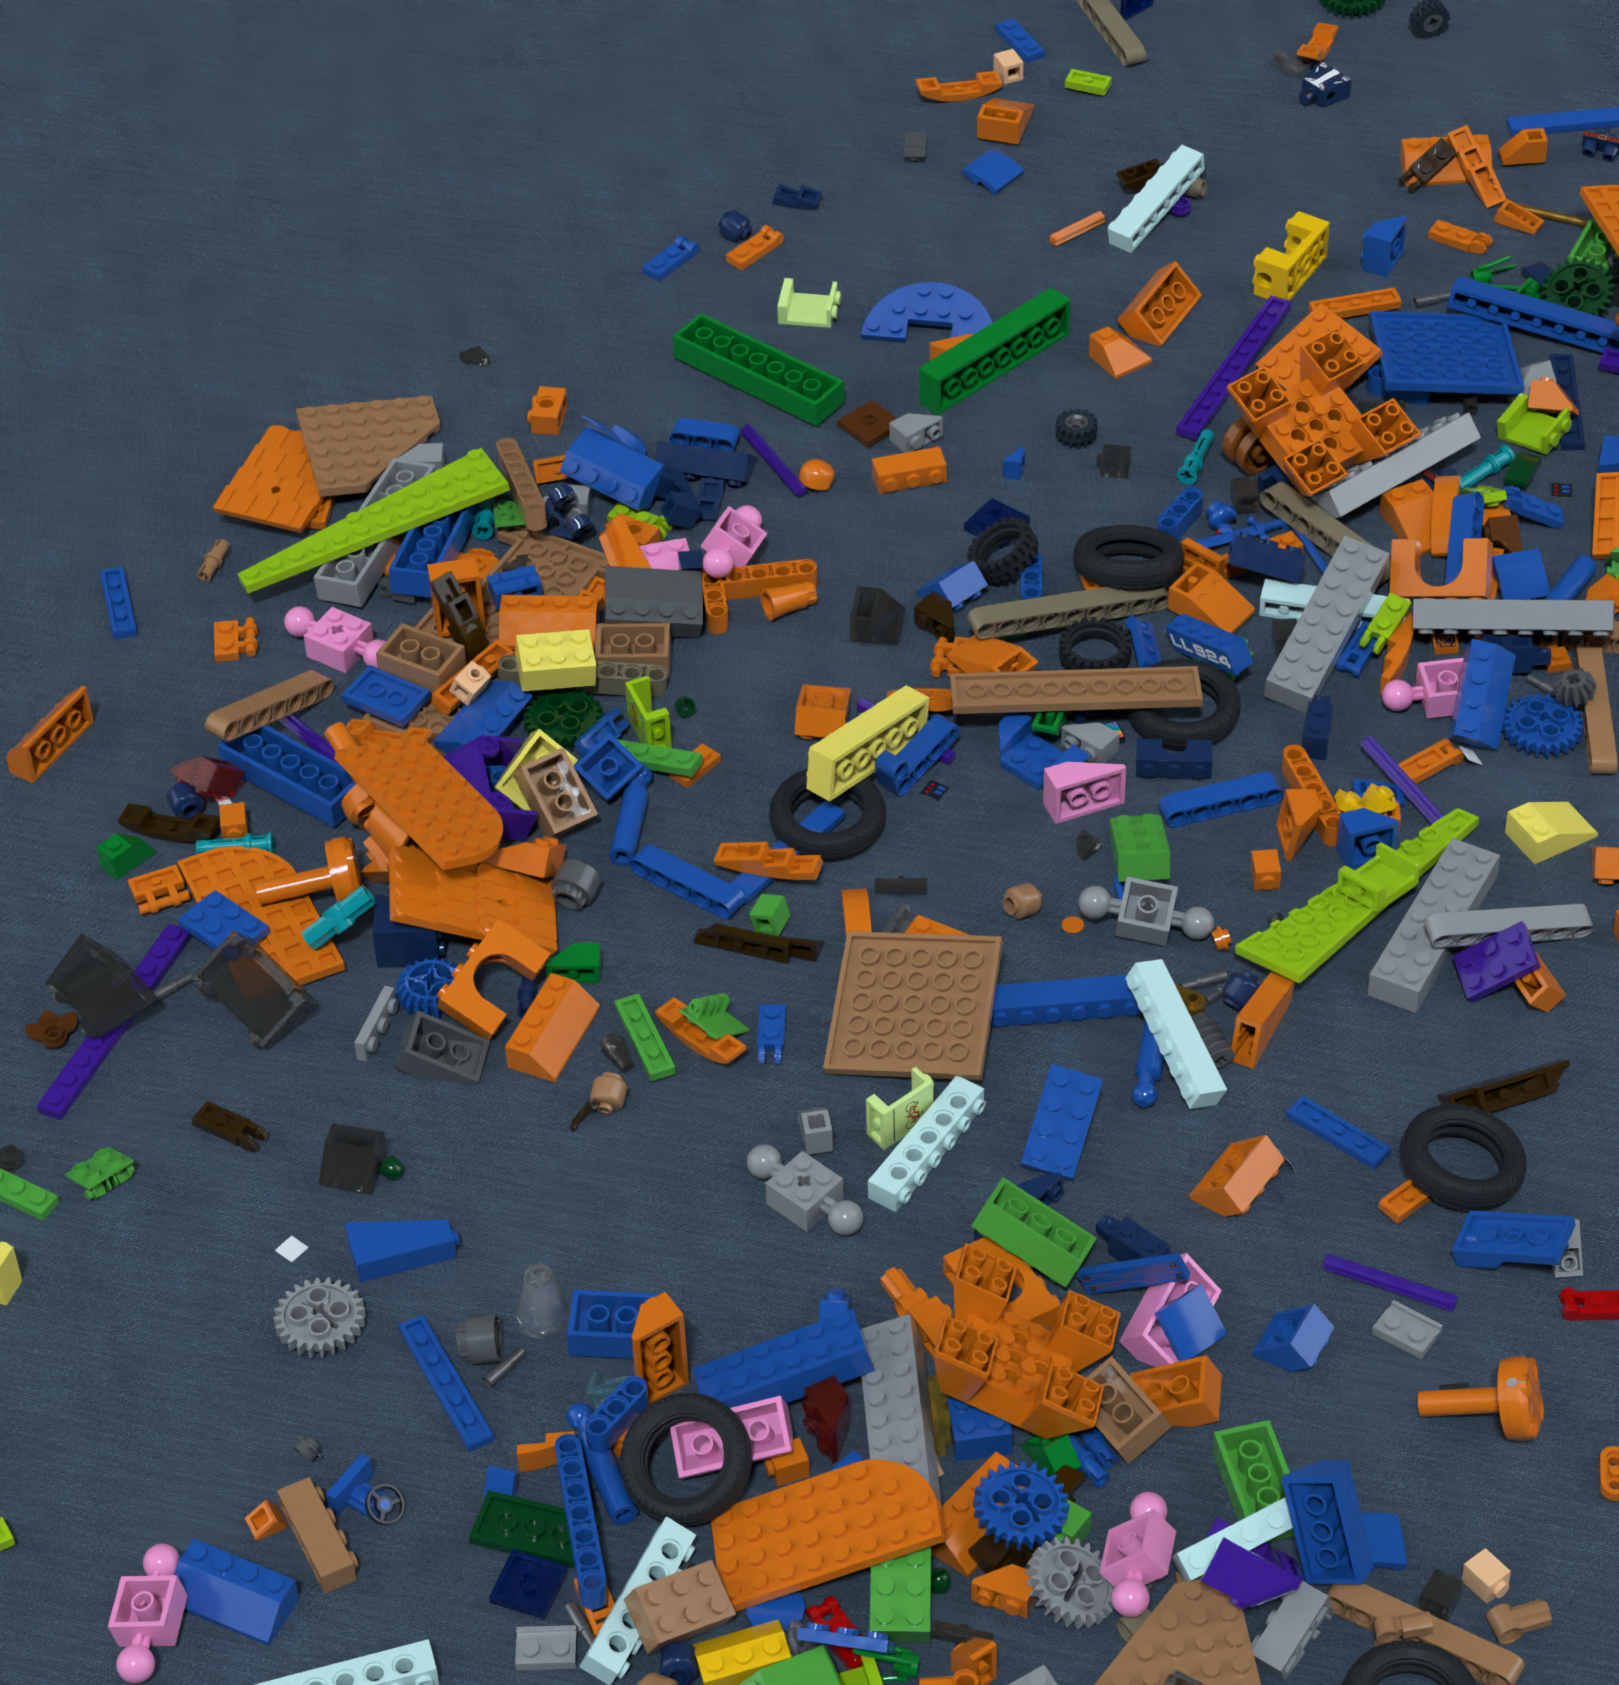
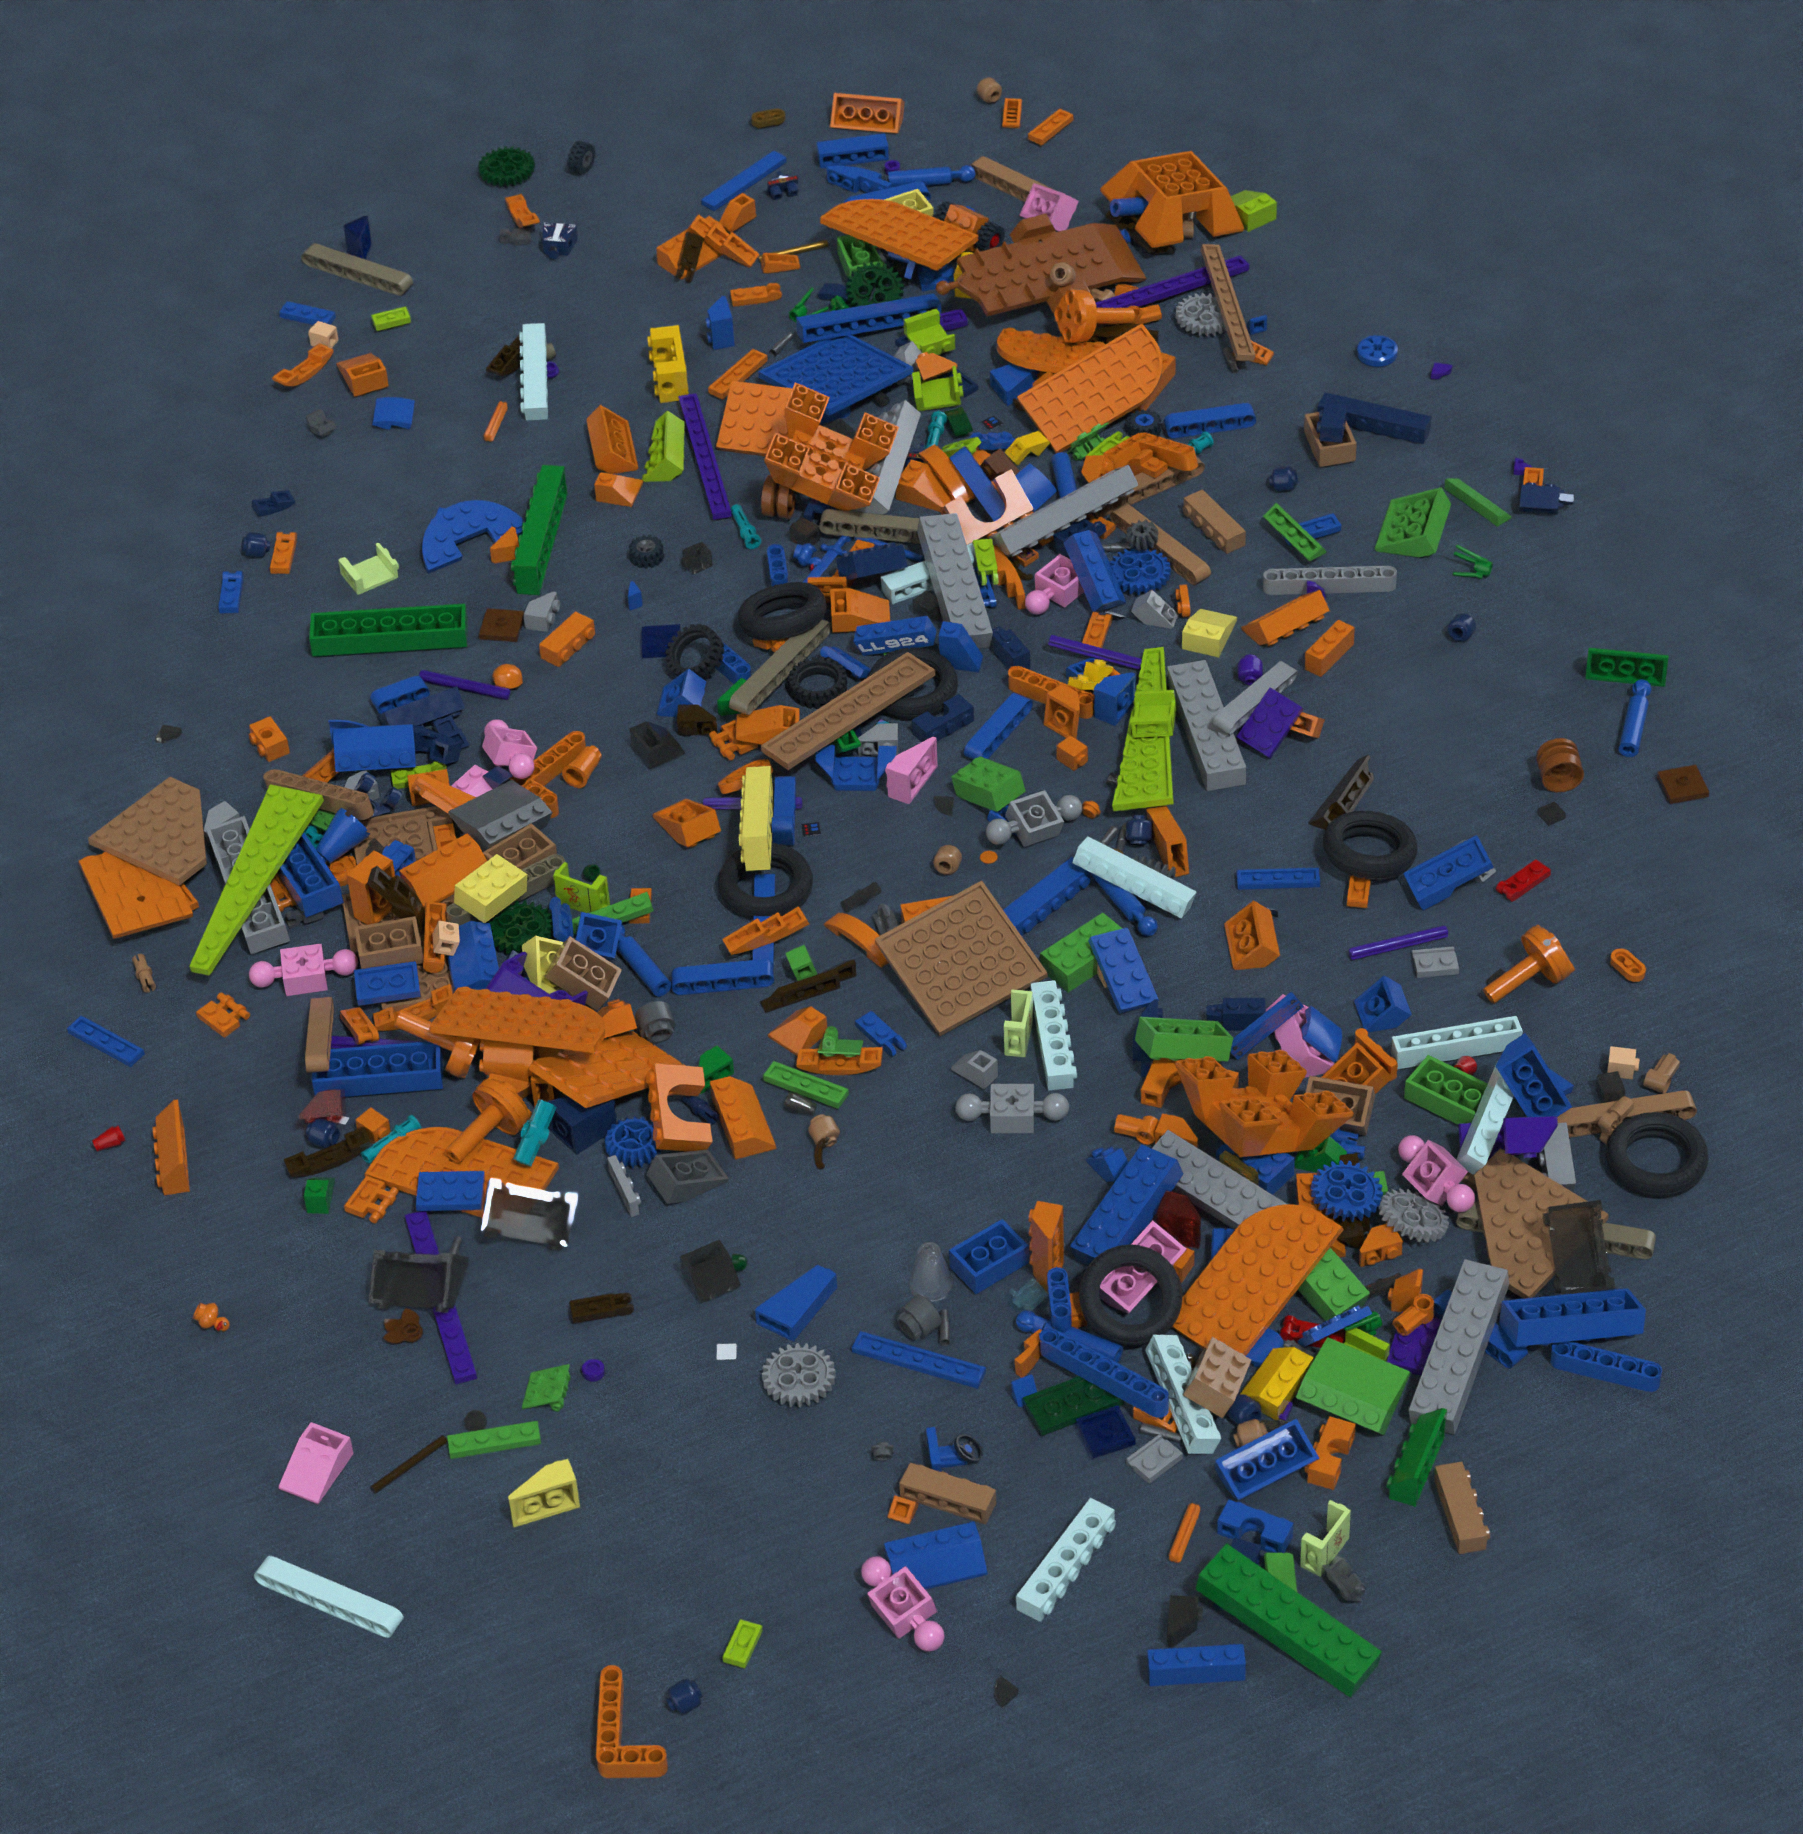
camera: 40 degrees left, 0 degrees up
(20, 691) = (110, 1138): none -> red cone
(159, 1182) = (593, 1370): none -> dark purple tile
(324, 716) = (359, 1025): none -> orange plate
(496, 534) = (341, 836): none -> blue cone
(697, 979) = (800, 1030): none -> orange slope
(1024, 1074) = (1071, 958): none -> bright green brick
(1203, 340) = (666, 450): none -> lime wedge
(1229, 1383) = (1376, 1052): none -> orange plate
(1261, 694) = (959, 647): none -> blue slope
(1303, 1458) = (1467, 1065): none -> red cone
(1325, 1429) = (1455, 1041): none -> light aqua brick
(1418, 650) = (1022, 575): none -> dark brown piece
(1512, 775) = (1154, 610): none -> light grey slope
(1546, 892) = (1249, 669): none -> dark purple head
(1555, 783) = (1183, 606): none -> orange plate
(1571, 531) = (1020, 448): none -> yellow slope
(1583, 364) = (928, 333): none -> lime panel

